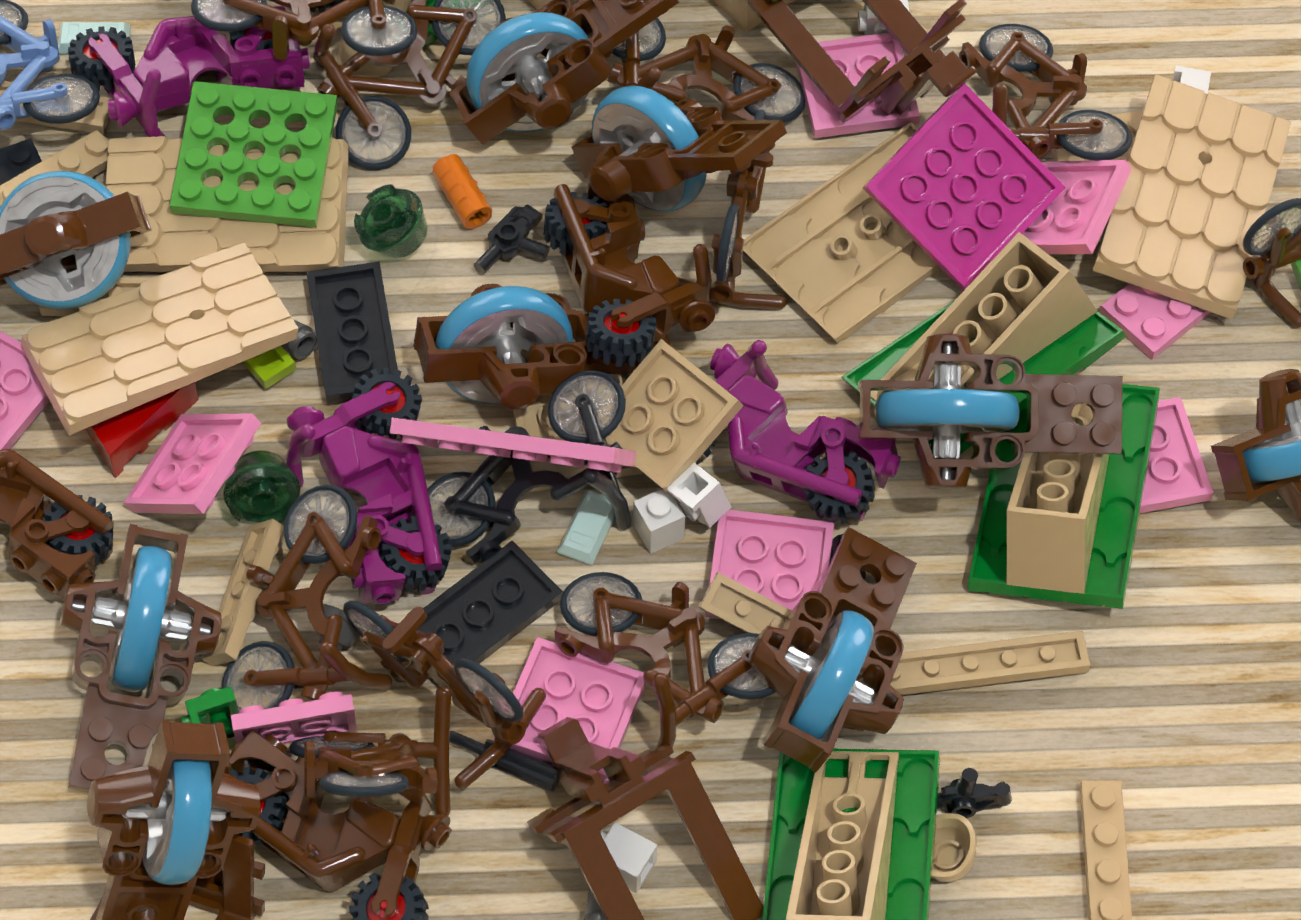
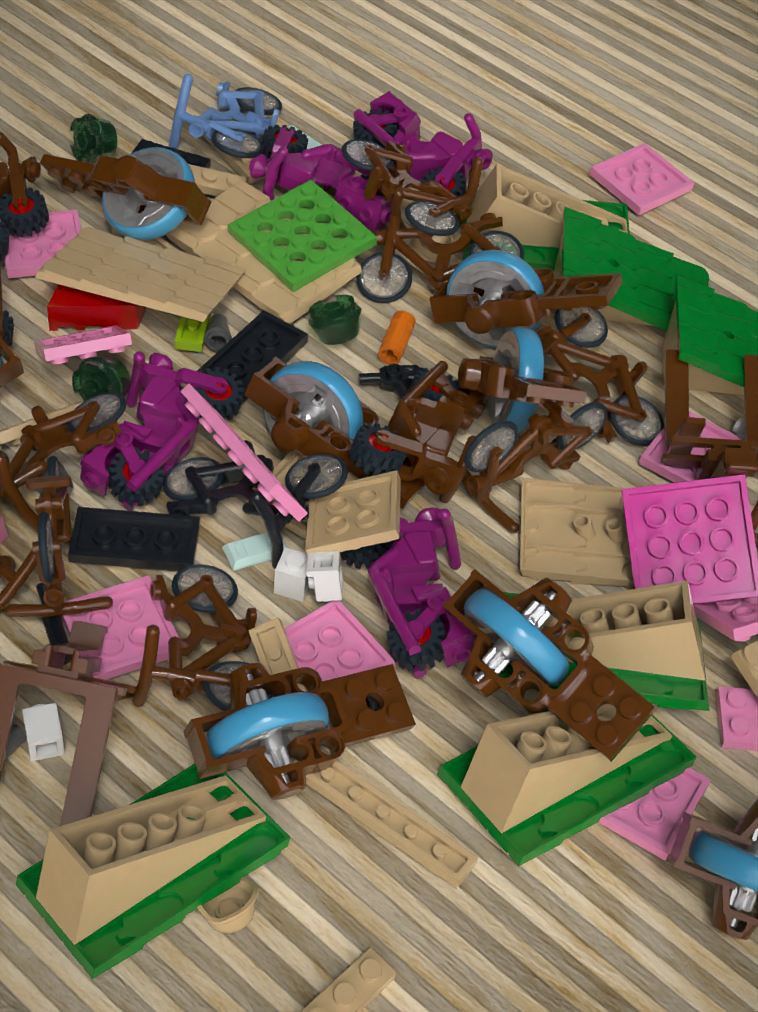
camera: 40 degrees right, 10 degrees down
(968, 797) = (283, 887): black piece -> none

